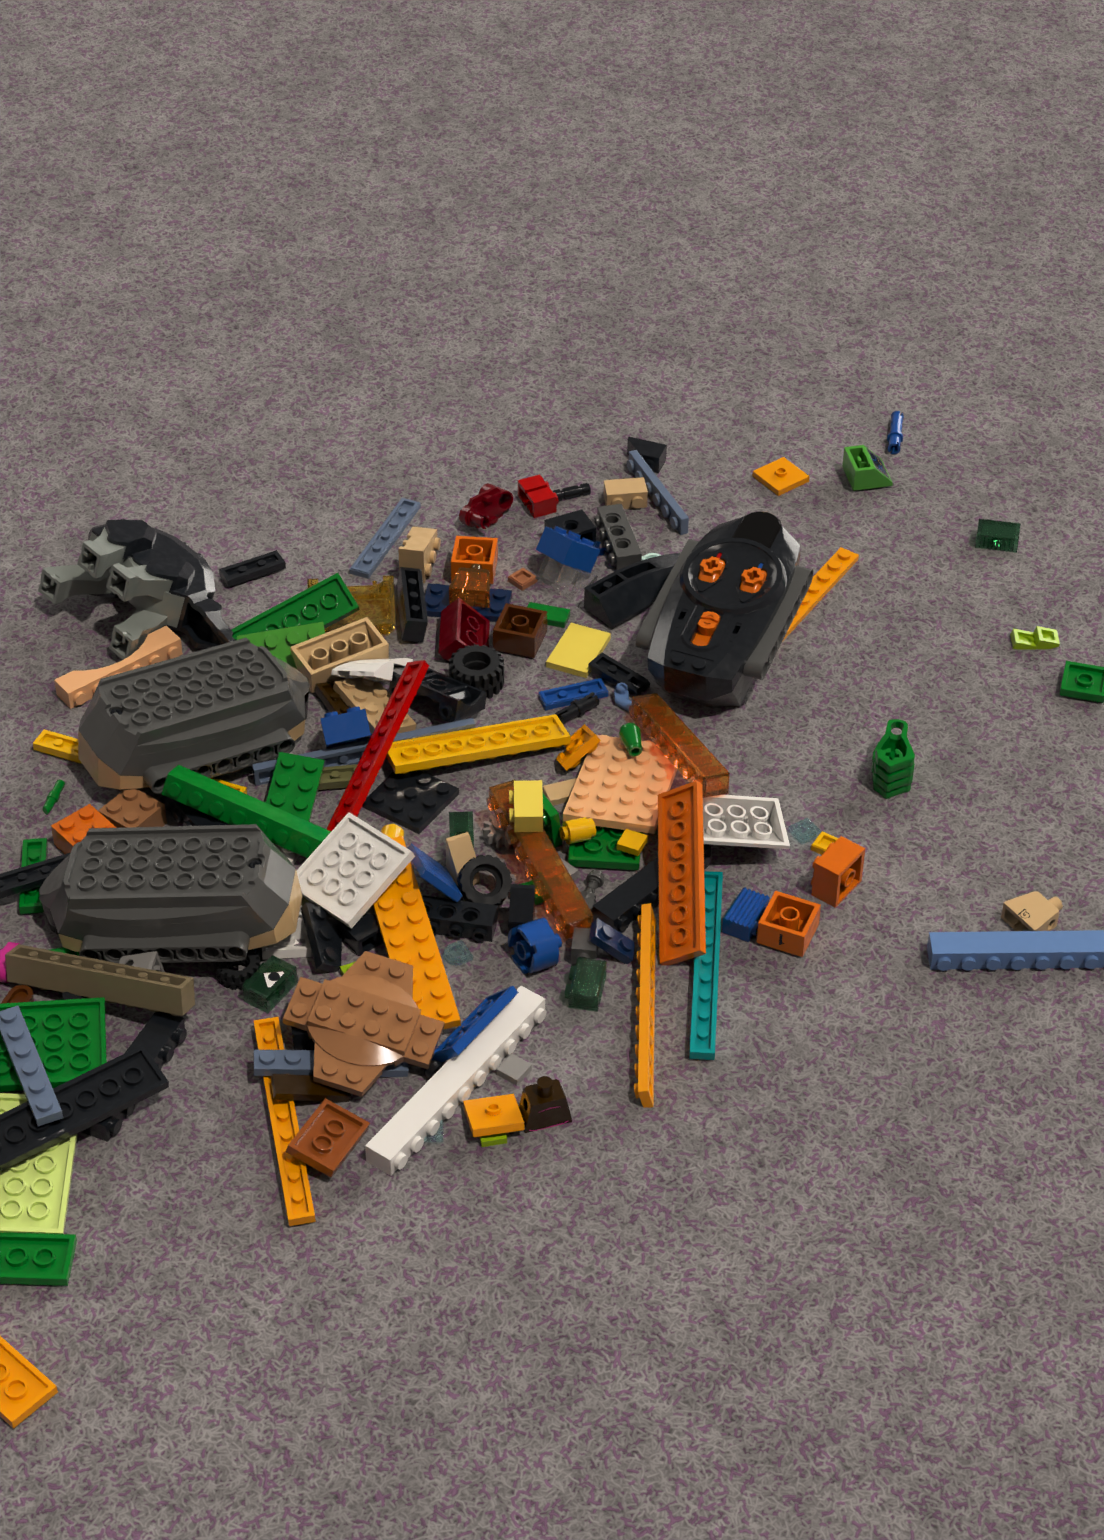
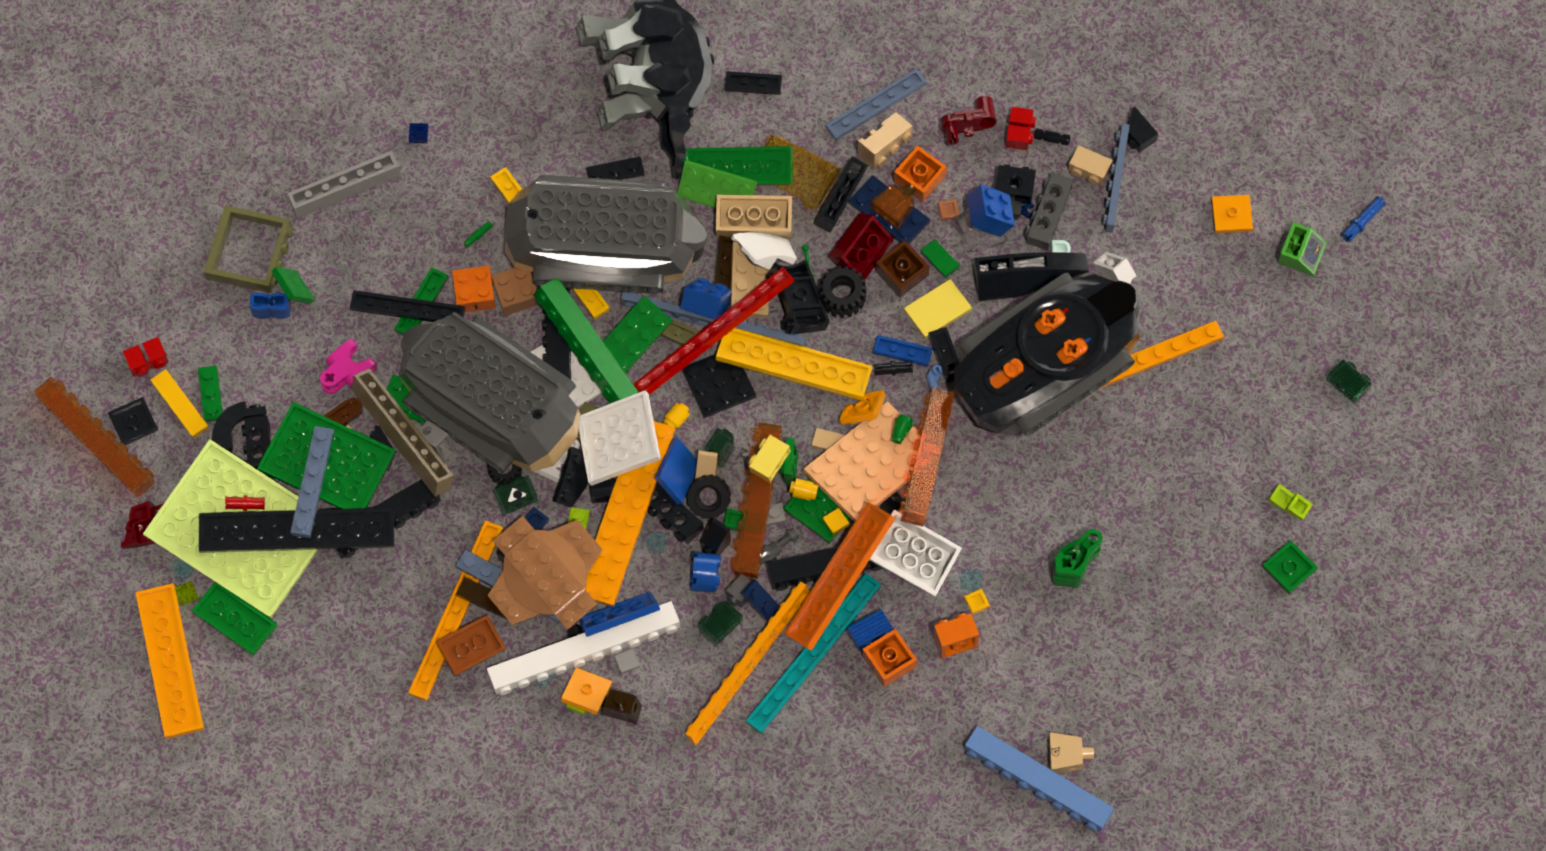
camera: 35 degrees right, 25 degrees up
(80, 686) = (556, 138): light nougat arch -> none

